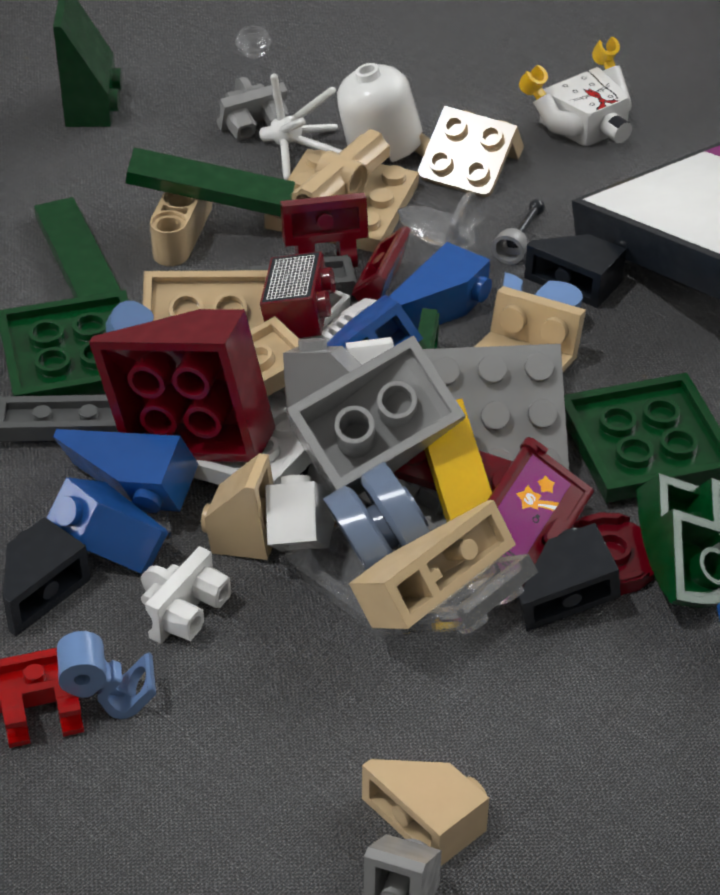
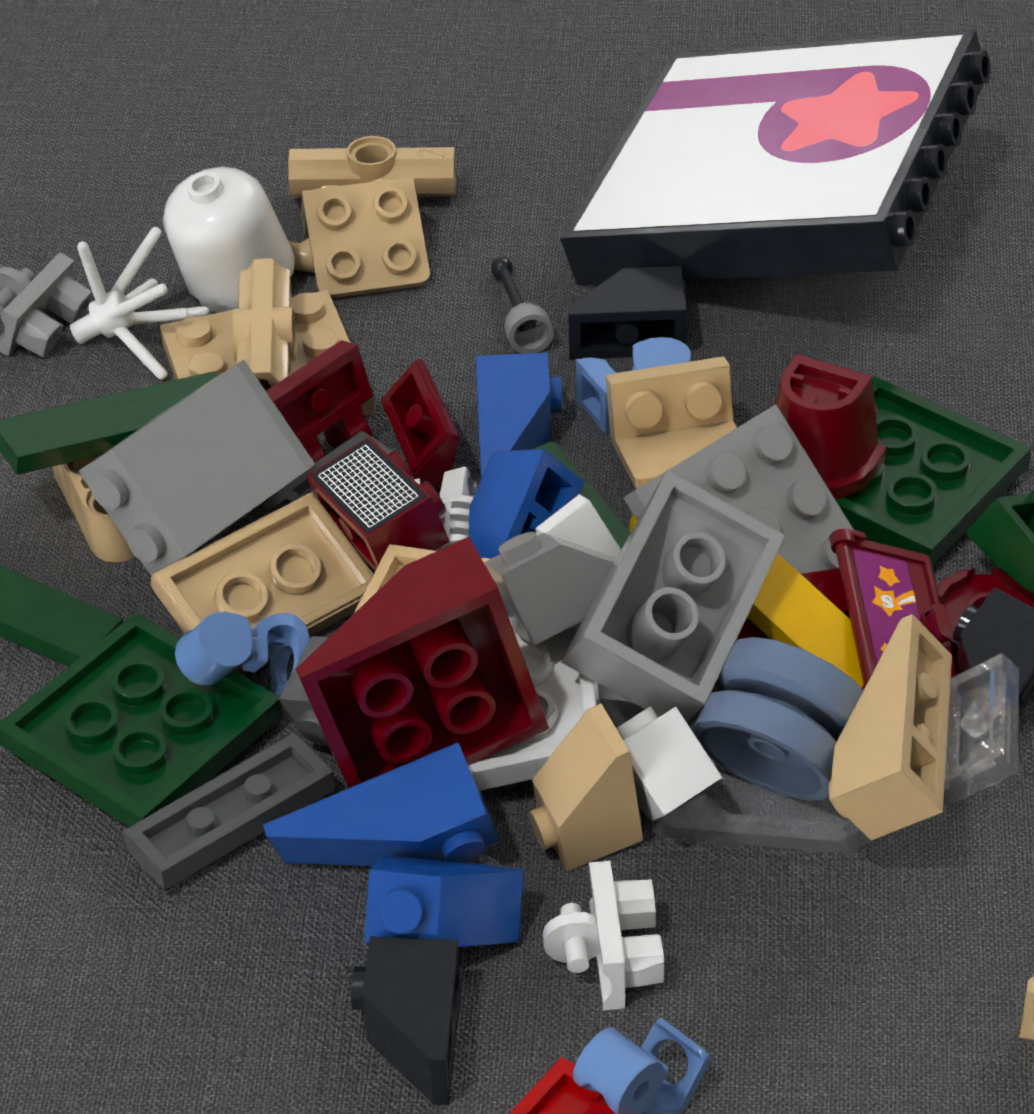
camera: 35 degrees left, 0 degrees up
(214, 222) = (197, 468): none -> light grey slope
(442, 227) = (438, 343): clear piece -> none
(534, 126) = (370, 160): none -> tan piece
(585, 105) = (440, 105): white torso -> none
(603, 381) = (833, 421): none -> dark red container

